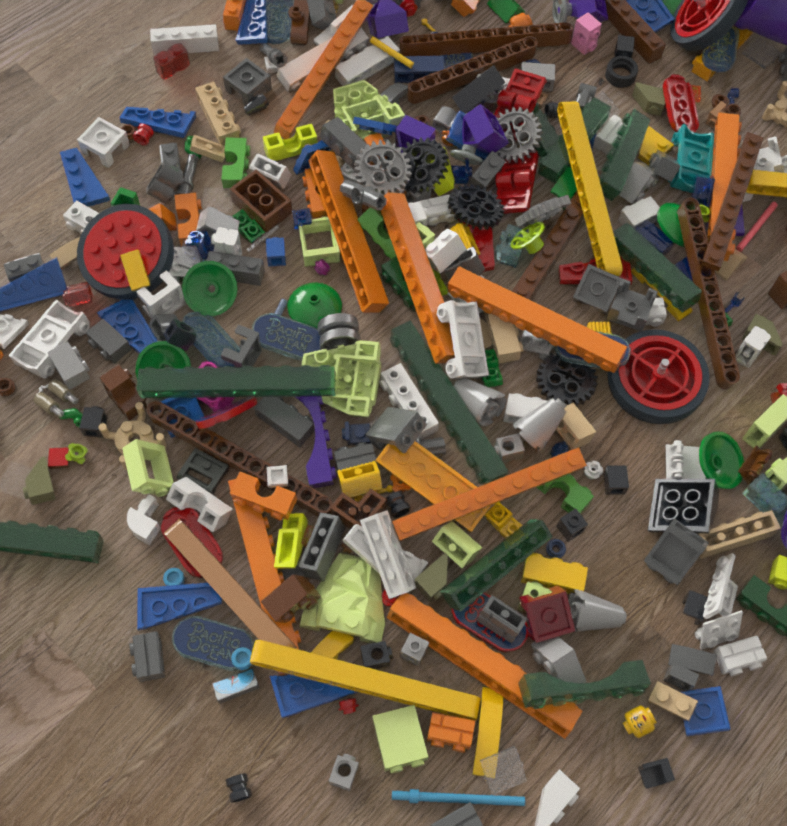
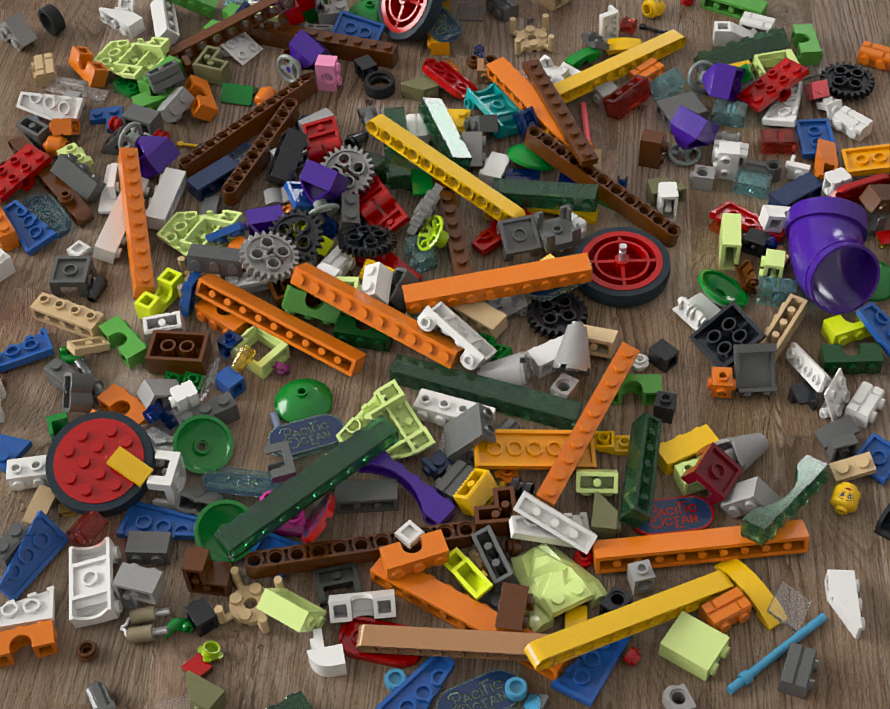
camera: 35 degrees left, 15 degrees down
(143, 134) = (14, 373): red wheel -> none
(180, 334) = (219, 489): black brick -> none
(274, 55) = (80, 239): dark grey pin -> none
(296, 239) = (243, 357): none -> clear yellow cone
(338, 330) = (348, 398): flat silver wheel -> none
(363, 194) = (265, 285): dark grey piece -> none
(391, 52) = (182, 176): yellow bar -> none
(501, 619) = (684, 502): dark grey brick -> none
(556, 543) = (668, 432): dark blue plate -> none
(559, 448) = (602, 364): dark blue plate -> none
(638, 541) = (721, 382): none -> orange brick

